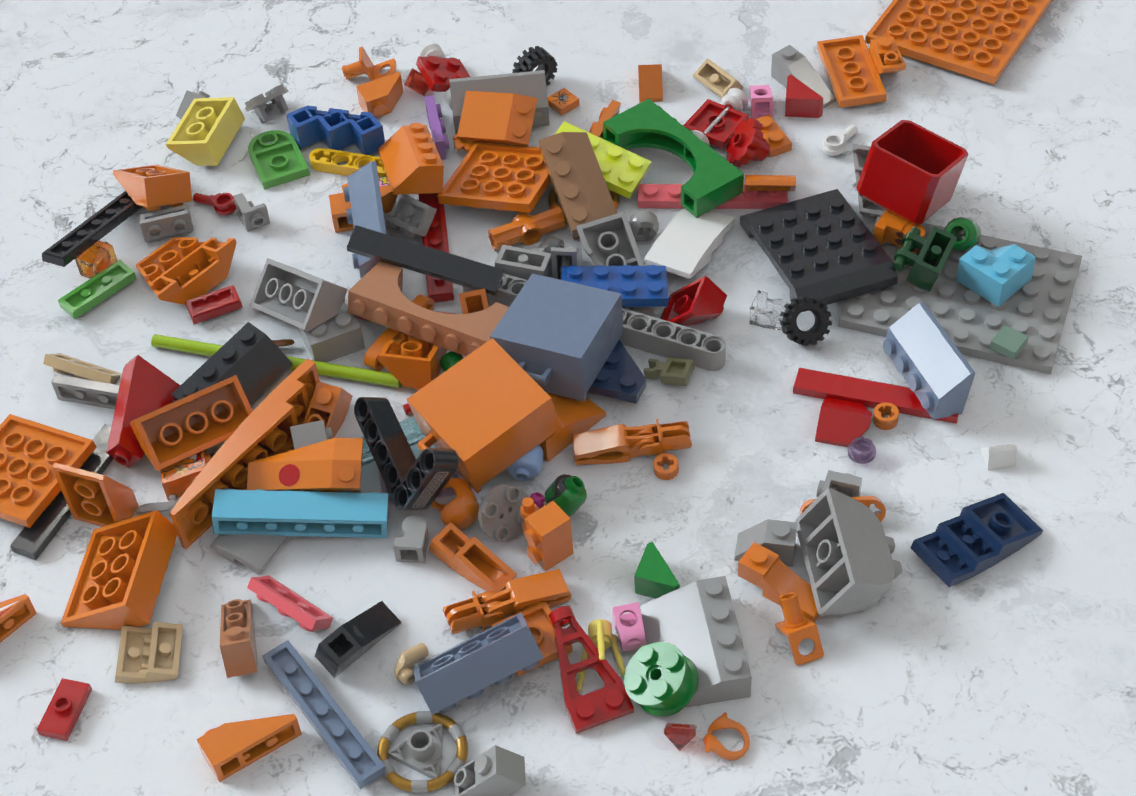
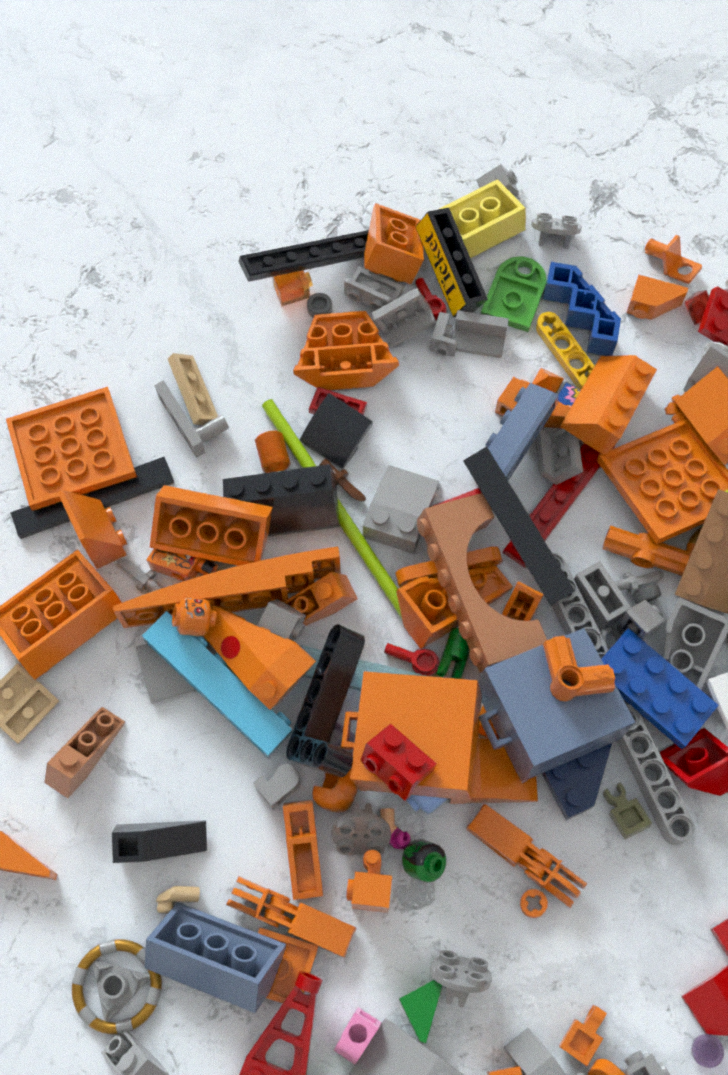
camera: 40 degrees right, 20 degrees up
(97, 289) = (268, 315): bright green plate -> none
(131, 258) = (319, 304): none -> dark grey tile
(140, 392) = (195, 467): red slope -> none
(187, 358) = (272, 451): none -> orange piece
(209, 215) = (404, 317): none -> light grey bracket
(210, 163) = (451, 261): none -> black brick
(225, 313) = (335, 431): none -> black slope
(241, 473) = (193, 617): none -> orange head
(276, 192) = (480, 333): none -> light grey panel
(289, 603) = (142, 757): coral plate -> none
(296, 296) = (396, 465): light grey slope -> none
(324, 714) = (79, 883): sand blue plate -> none
(436, 126) = (669, 373): medium lavender plate -> none
(486, 420) = (396, 761): none -> red bracket
(551, 294) = (583, 679): none -> orange piece
(601, 635) = (329, 1020): light yellow plant -> none
(665, 536) = (460, 975): none -> light grey plate
(778, 505) = (581, 1038): none -> orange plate

